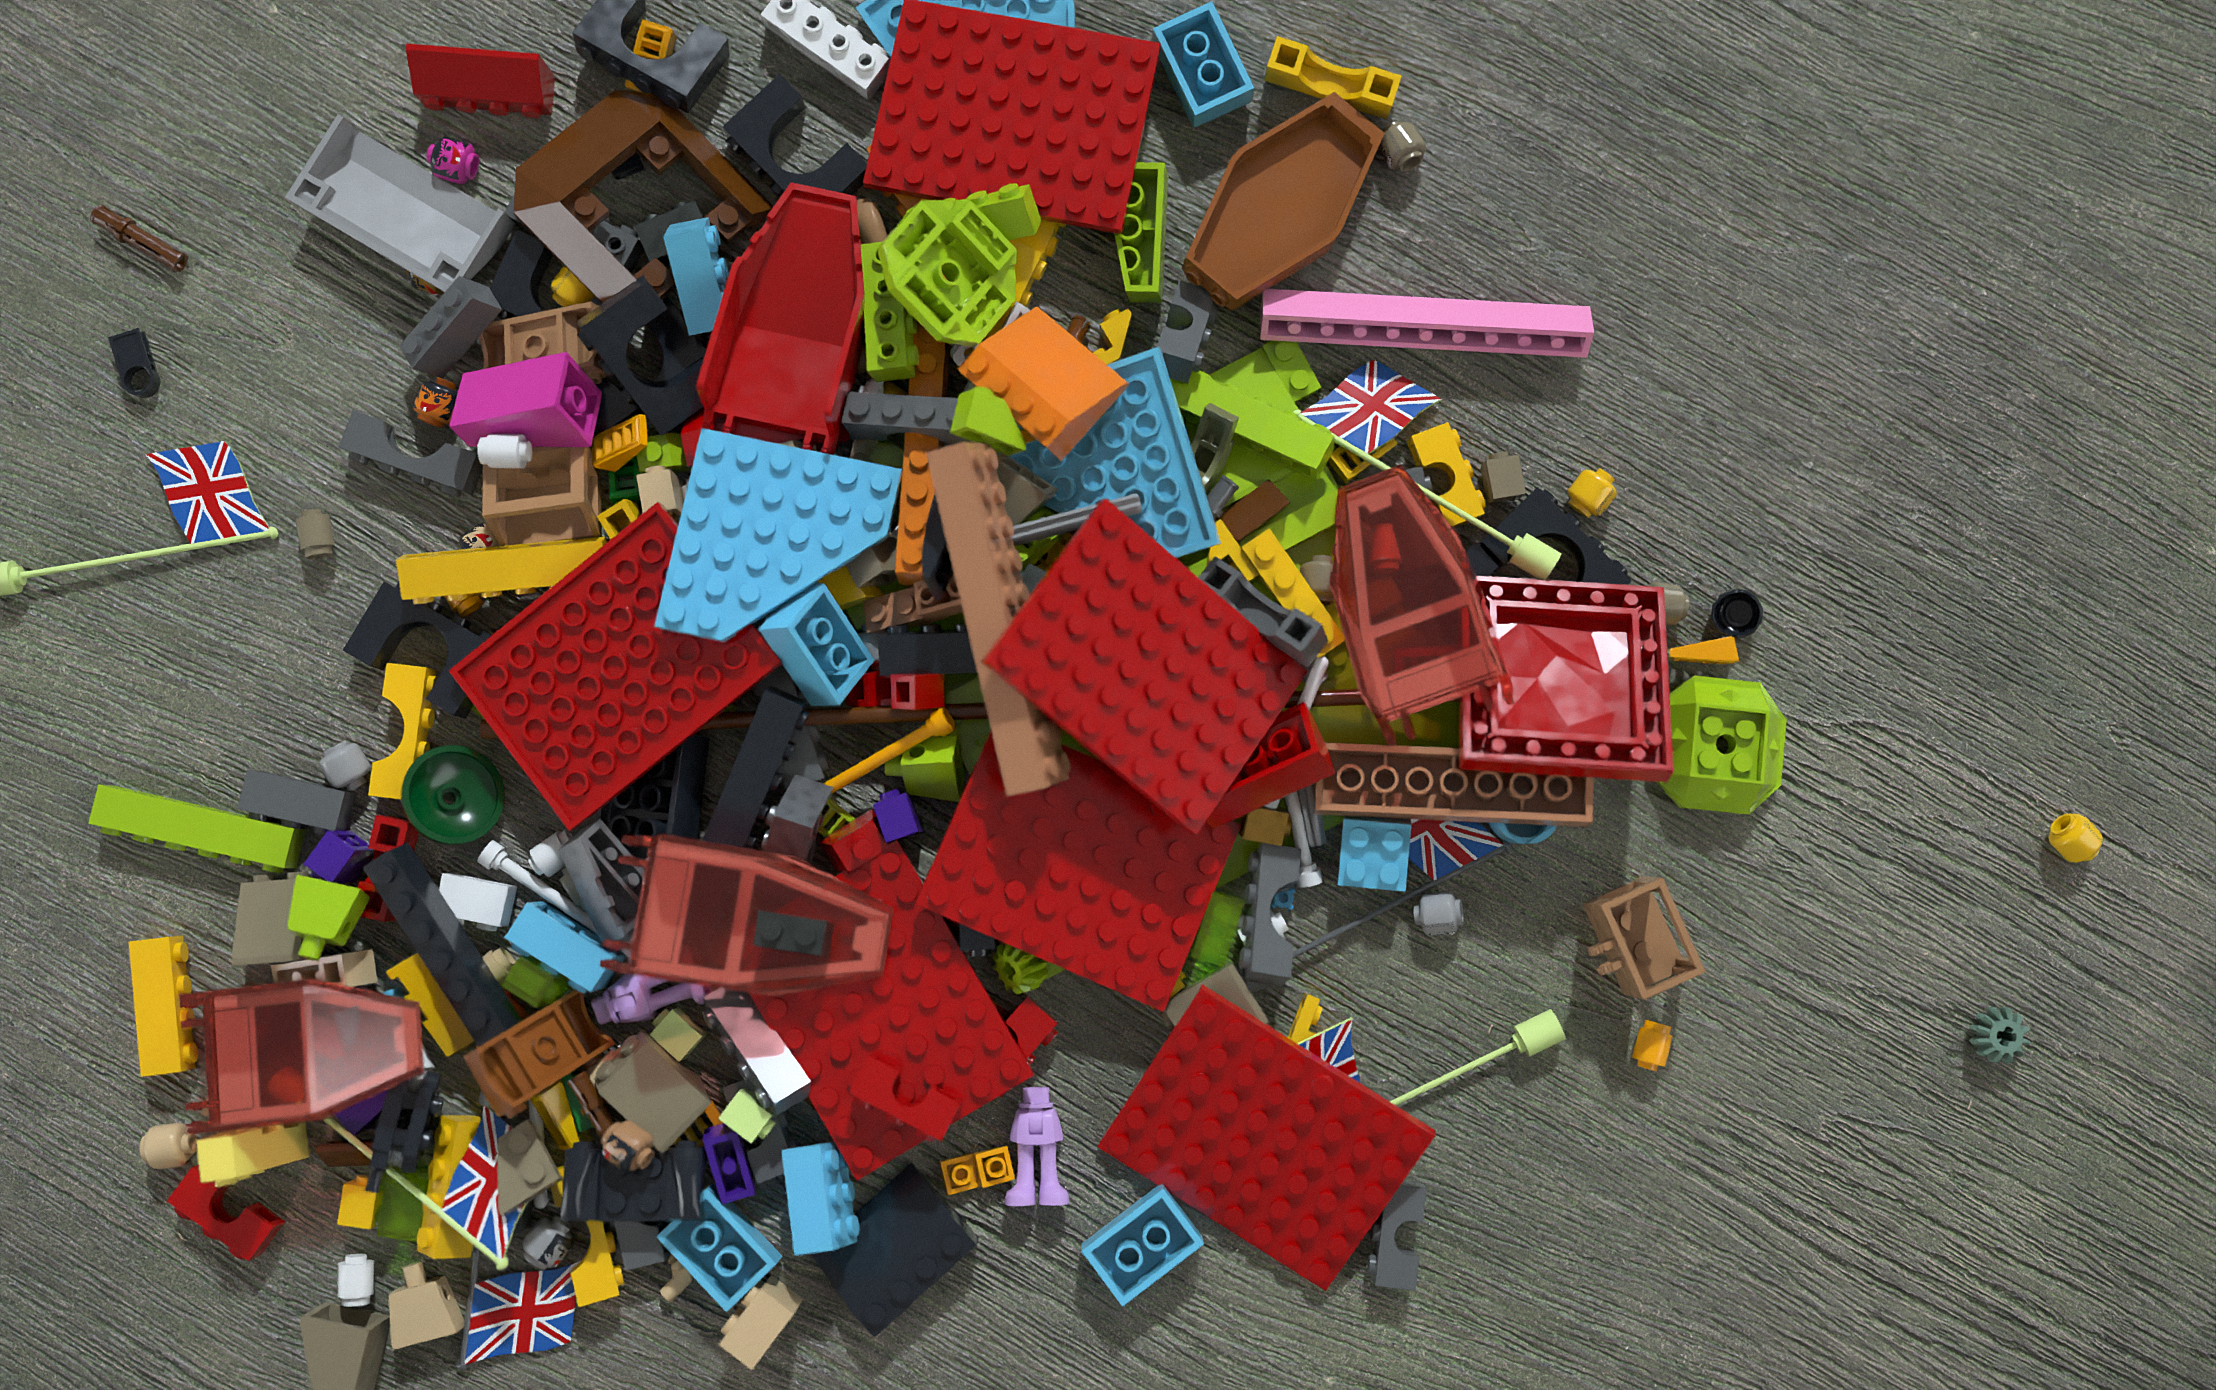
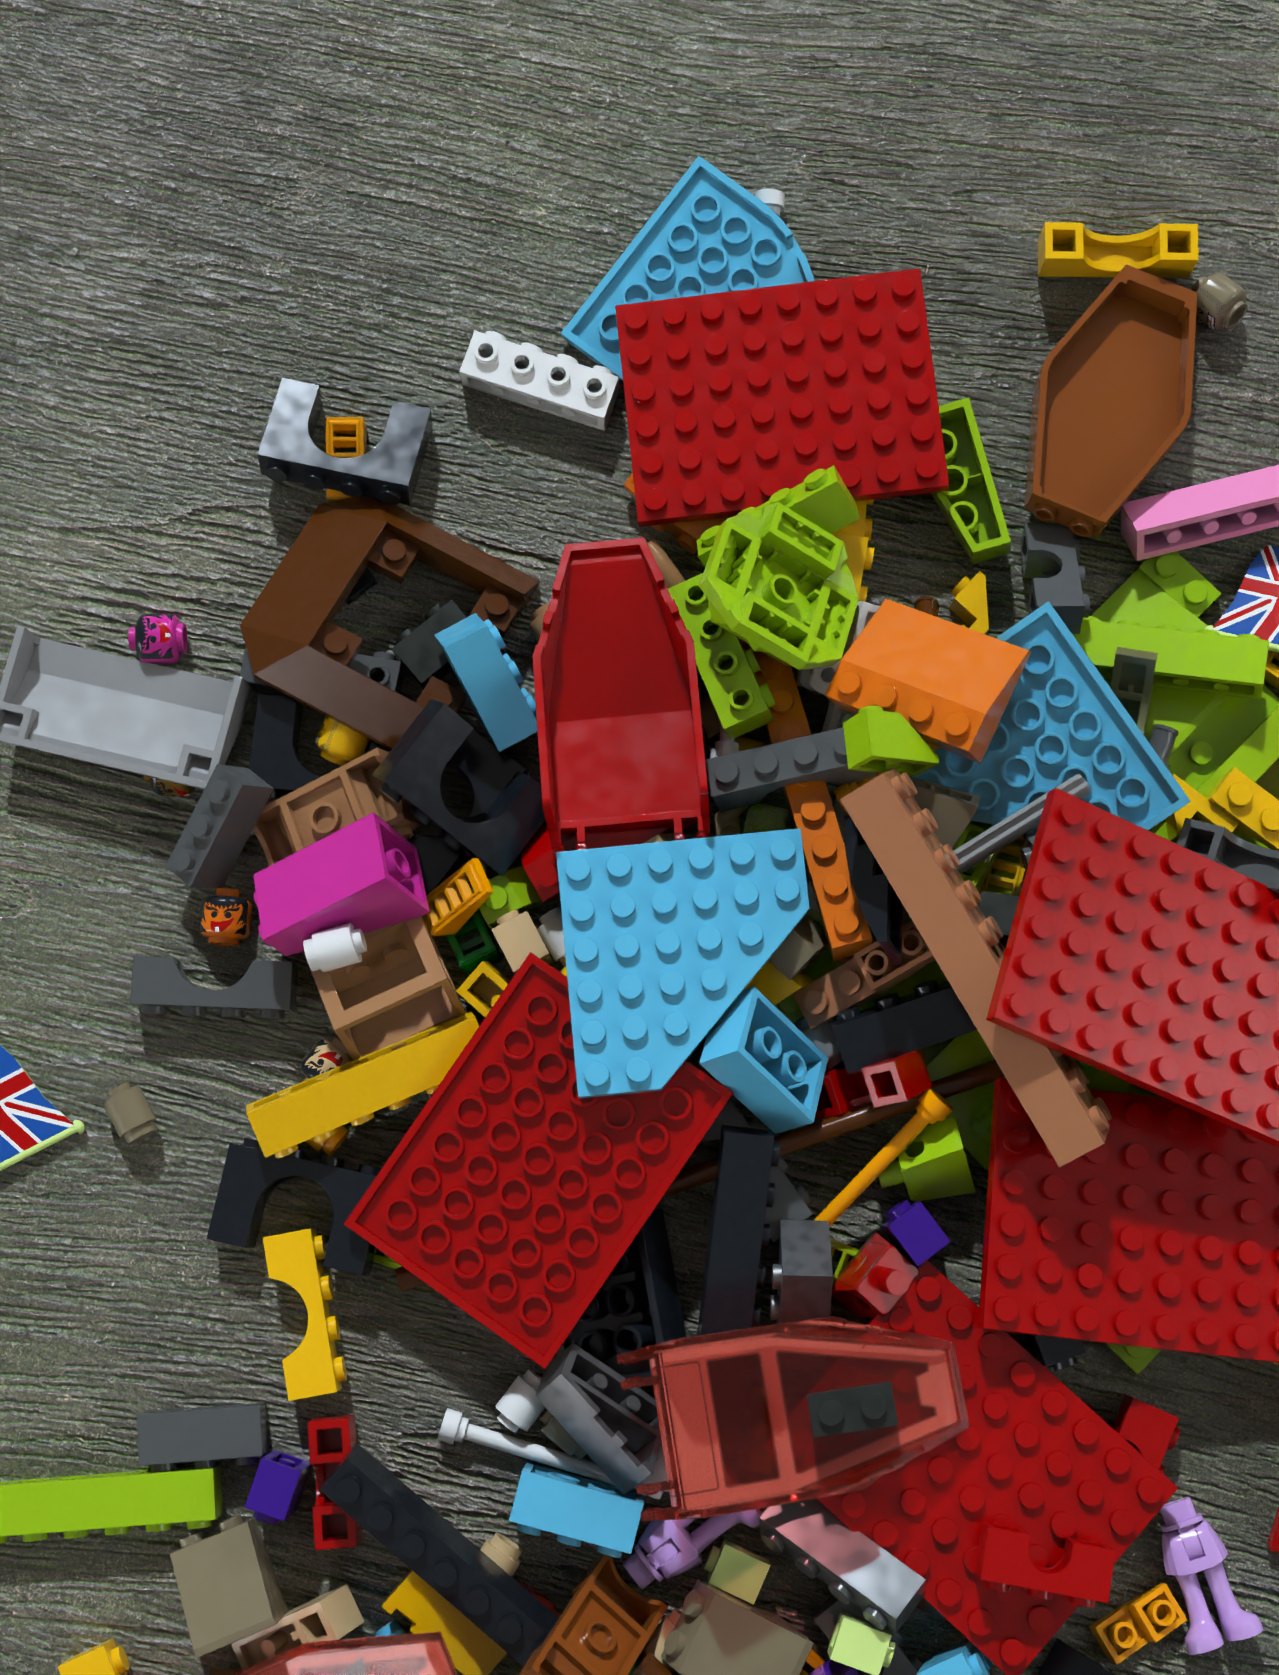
camera: 10 degrees left, 5 degrees down
(323, 914) = (287, 1560): lime torso -> none
(345, 766) = (247, 1374): light grey head -> none
(468, 779) = (405, 1354): dark green dish -> none
(478, 900) = (454, 1484): white brick -> none
(481, 80) = (165, 539): red slope -> none
(534, 983) = (556, 1563): clear neon green brick -> none
(759, 124) = (491, 499): black arch -> none
(1019, 969) = (1112, 1367): lime gear -> none
(1203, 64) = (970, 279): medium azure brick -> none
(1254, 510) = (1204, 751): reddish brown slope -> none

